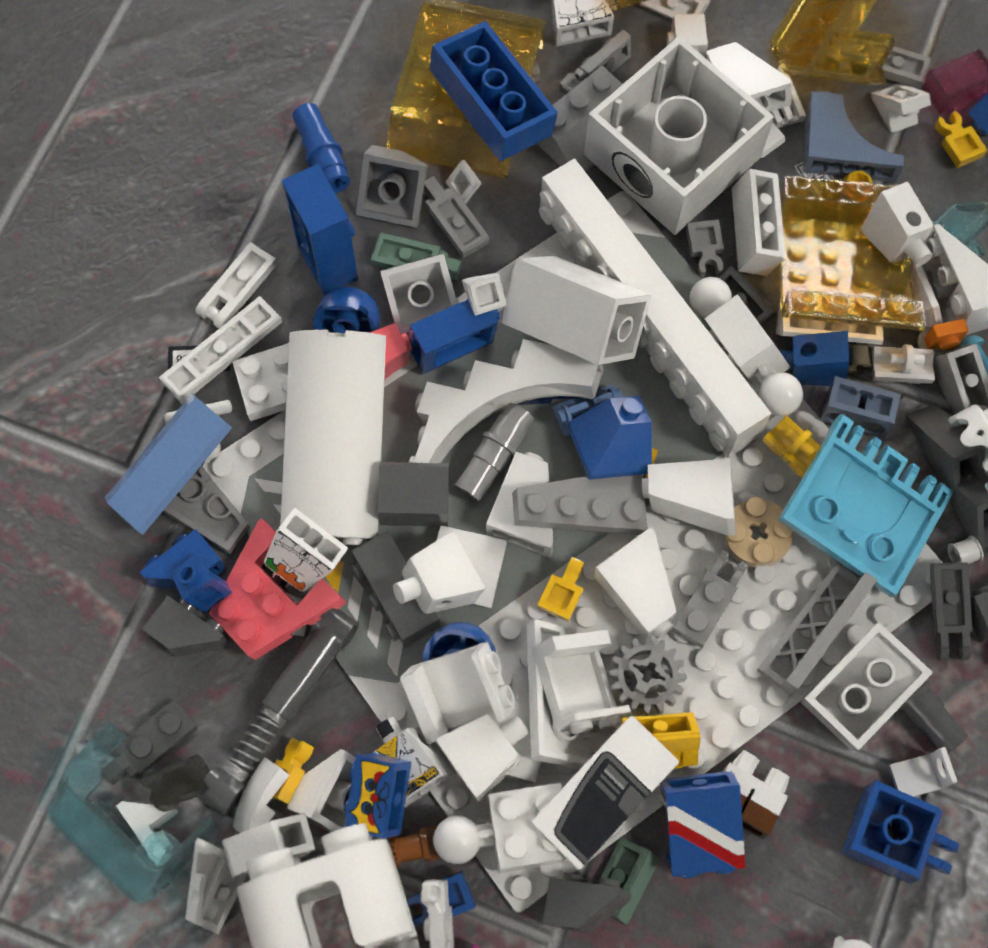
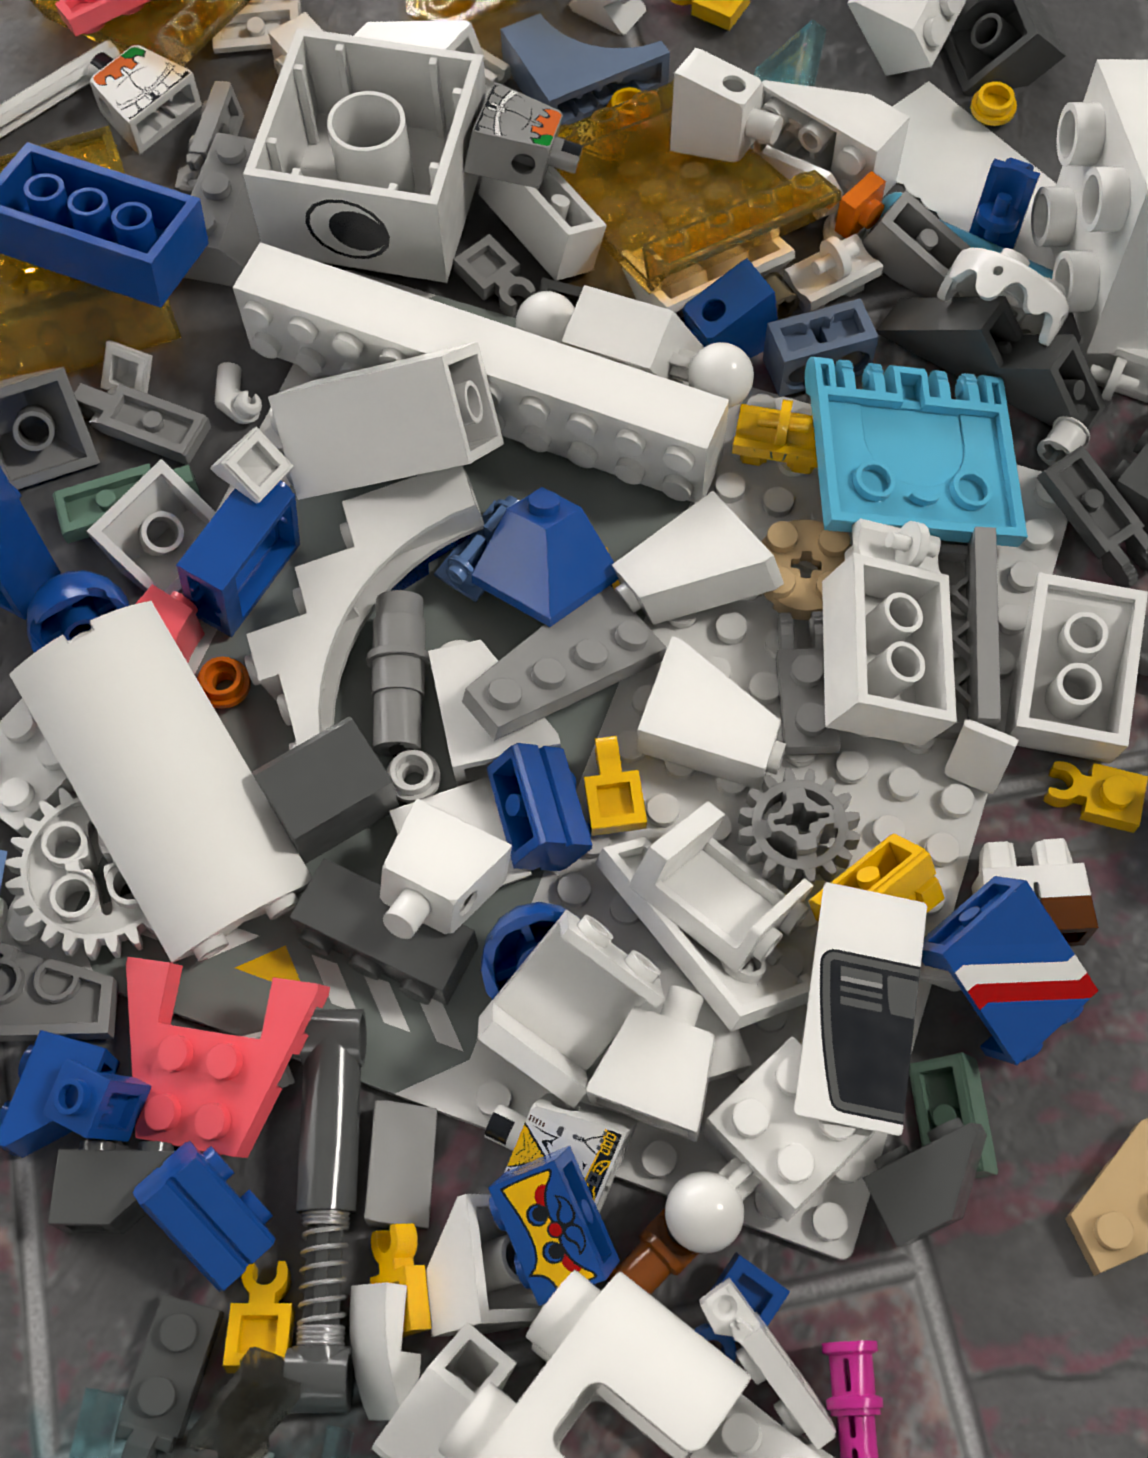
camera: 30 degrees left, 5 degrees down
(212, 744) = (262, 1320): none -> yellow plate
(217, 675) = (205, 1214): none -> blue brick
(246, 453) = (51, 880): none -> white gear
(302, 552) = (222, 961): white torso -> none
(327, 713) = (401, 1165): none -> light grey slope
(397, 390) = (222, 669): none -> orange plate
(466, 504) = (409, 762): none -> white plate
(510, 233) = (230, 399): none -> white arm
(517, 575) = (539, 807): none -> blue brick
(763, 610) = (888, 651): none -> white brick
(766, 176) = (518, 140): none -> light grey torso
(775, 701) = (980, 756): none -> white slope
(809, 559) = (905, 545): none -> white hips
(836, 768) = (1106, 795): none -> yellow plate

